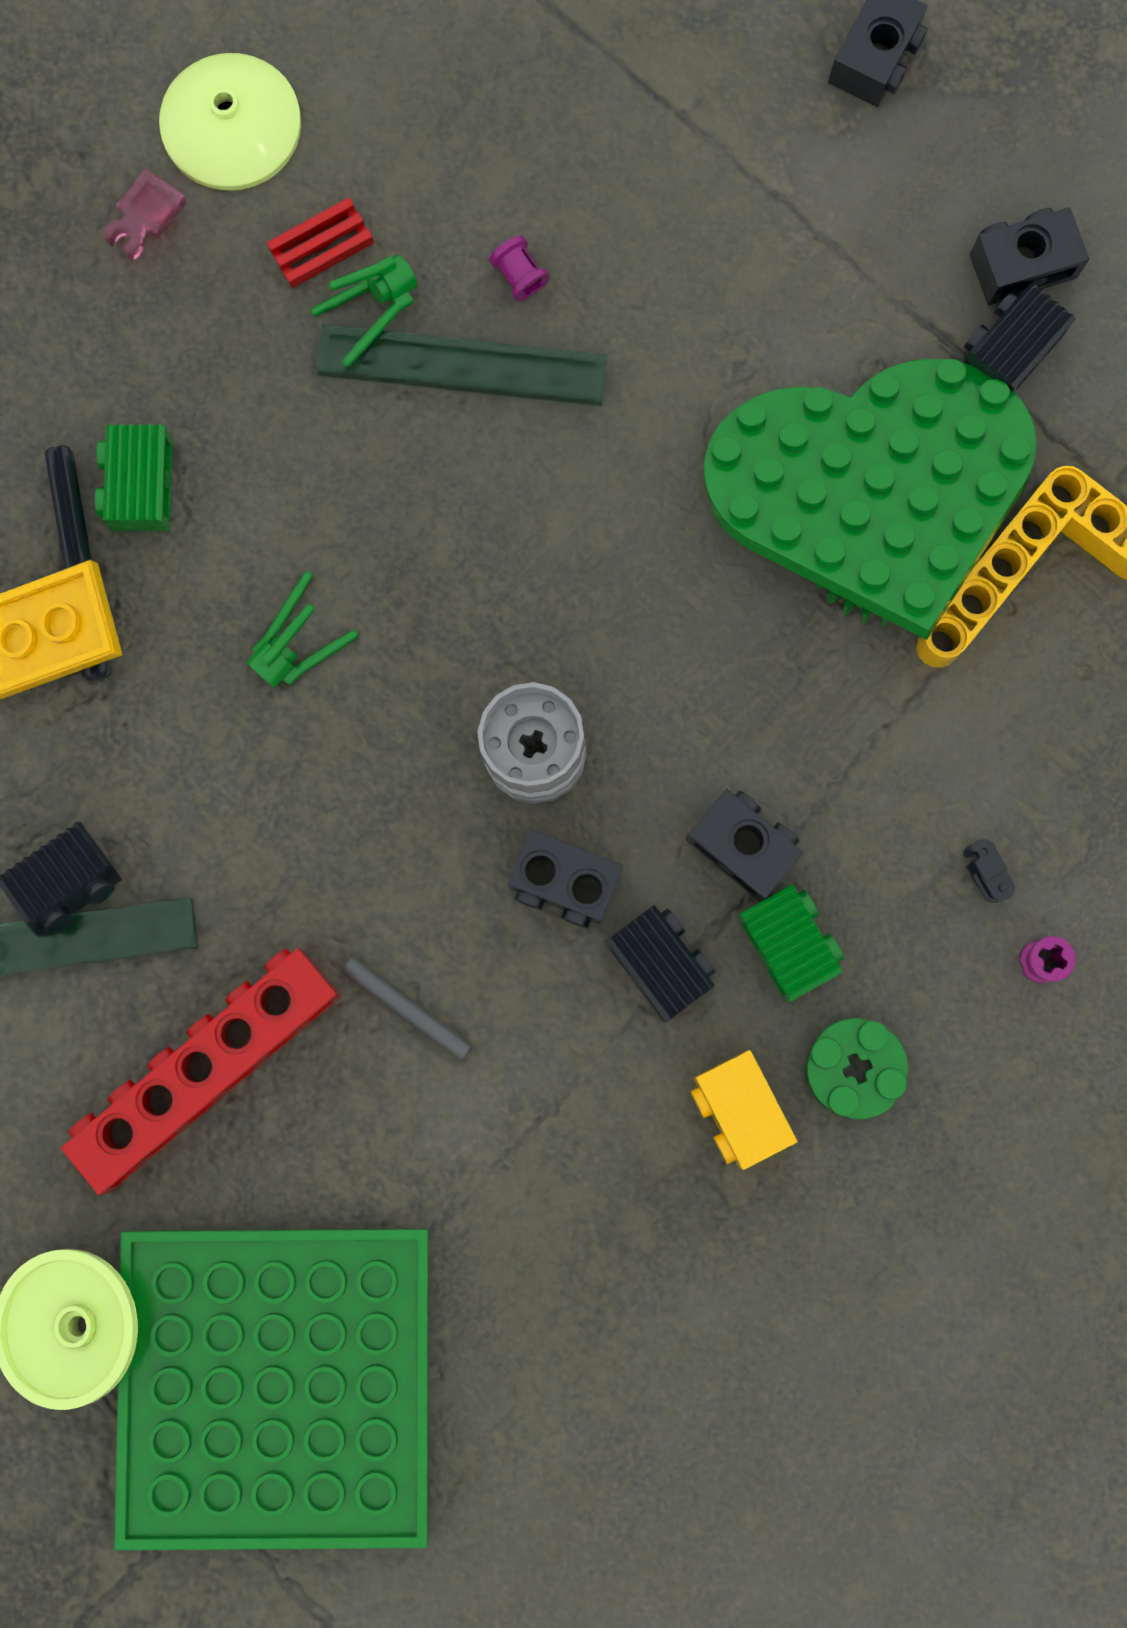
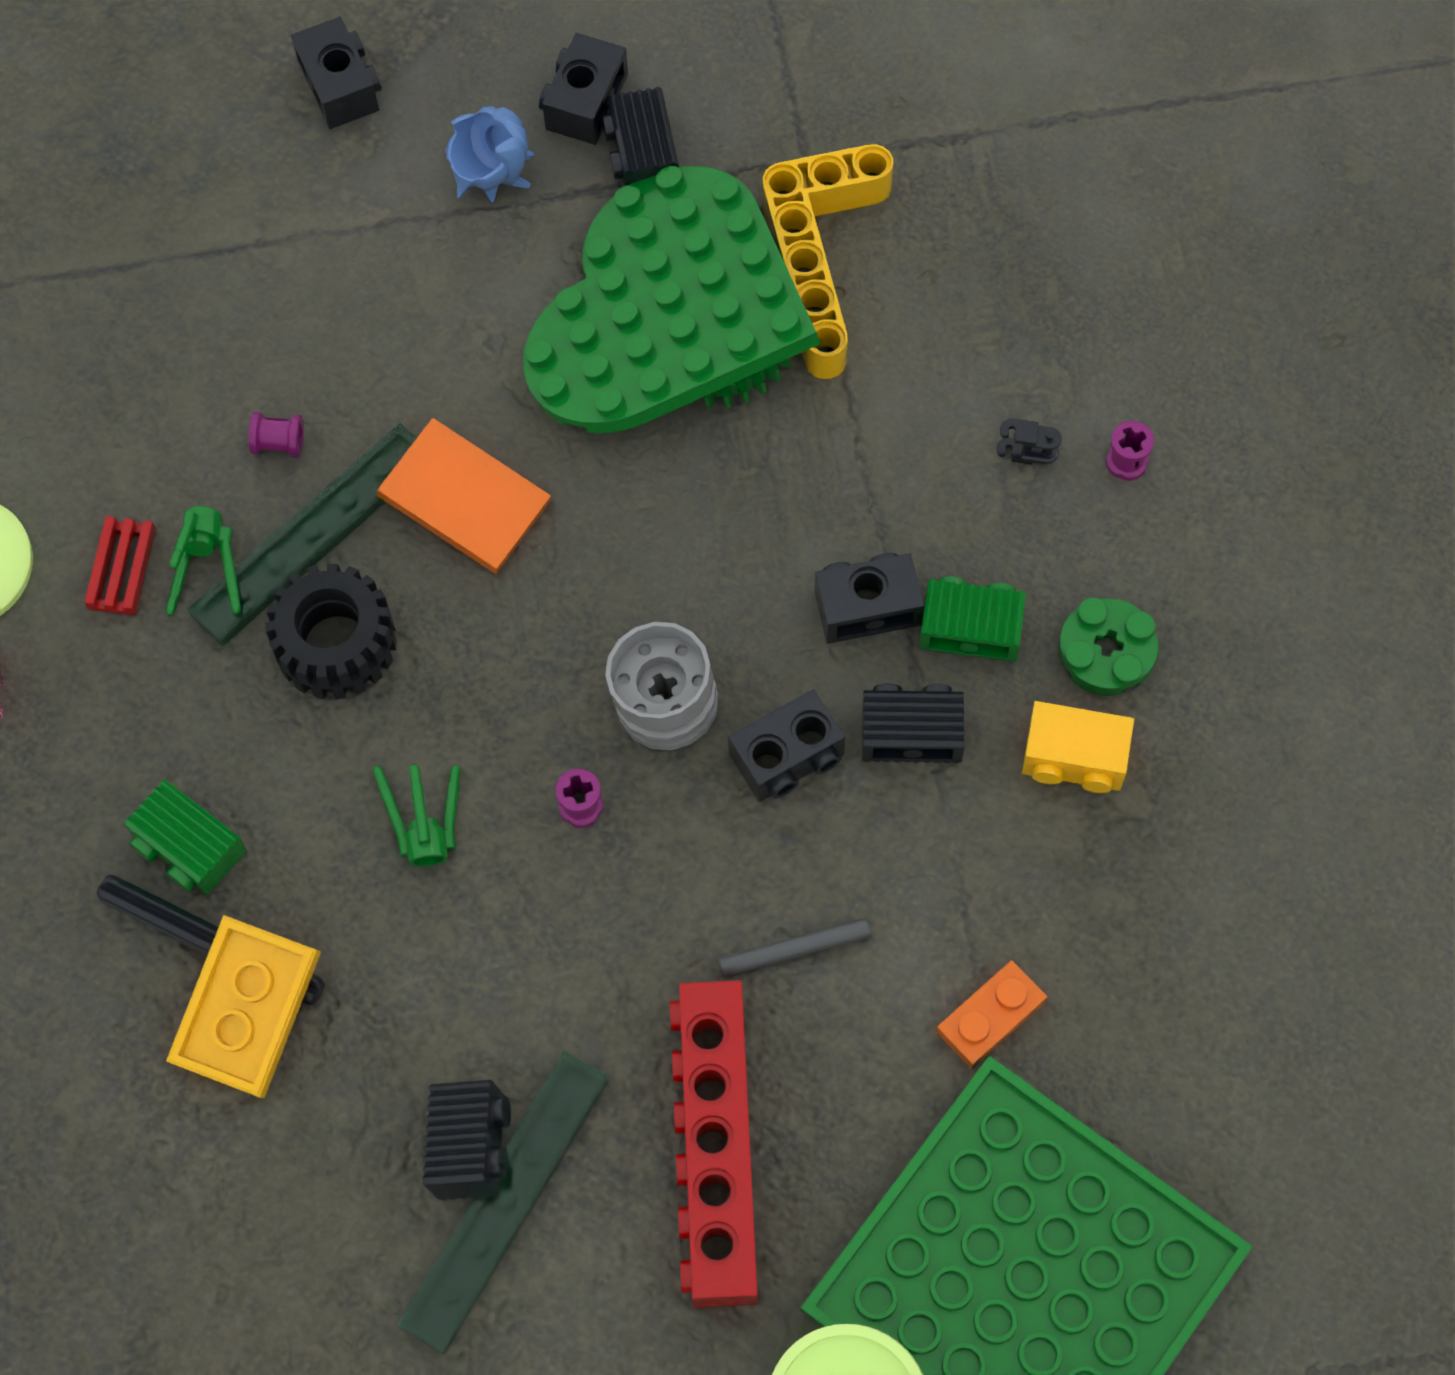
camera: 50 degrees left, 15 degrees down
(375, 412) = (326, 596): none -> black tyre
(397, 734) = (576, 782): none -> magenta bush
(468, 1203) = (991, 1014): none -> orange plate
(582, 456) = (464, 495): none -> orange tile
(897, 226) = (488, 151): none -> medium blue hair

